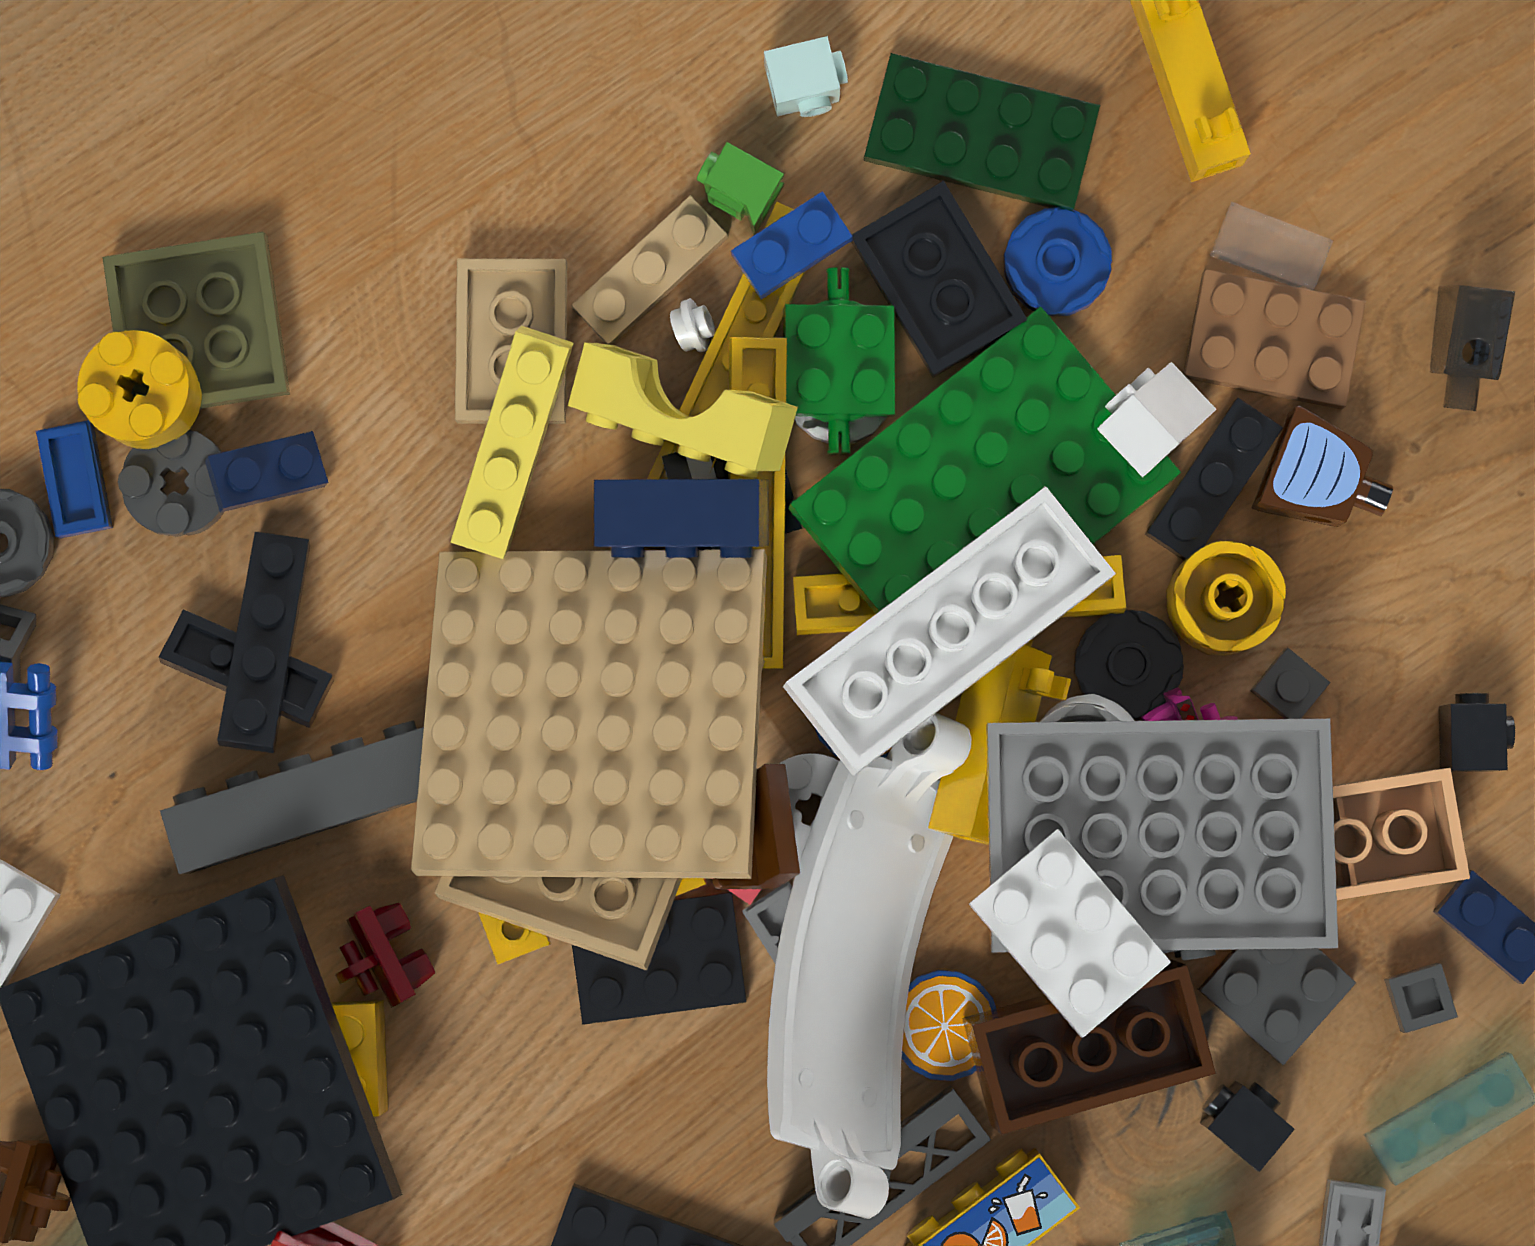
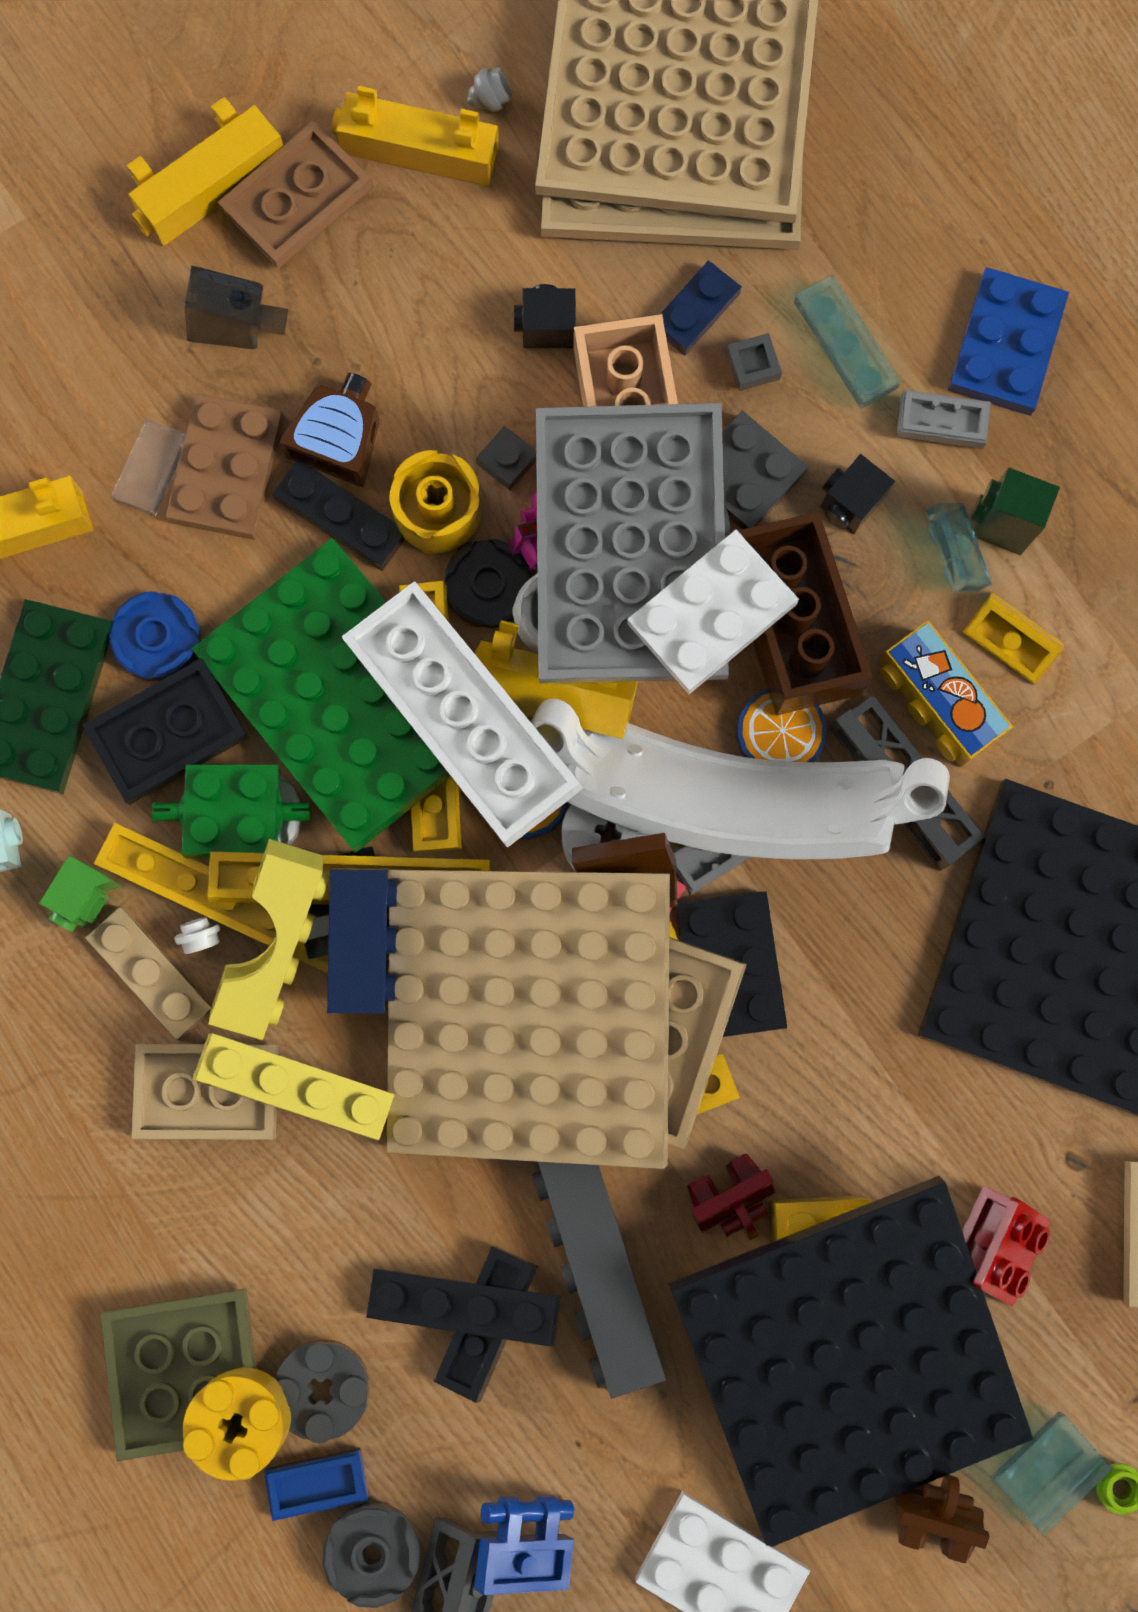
camera: 100 degrees left, 5 degrees down
(266, 471) = (313, 1308): dark blue plate -> none
(791, 245) = (131, 849): blue plate -> none
(1154, 416) = (286, 552): white brick -> none

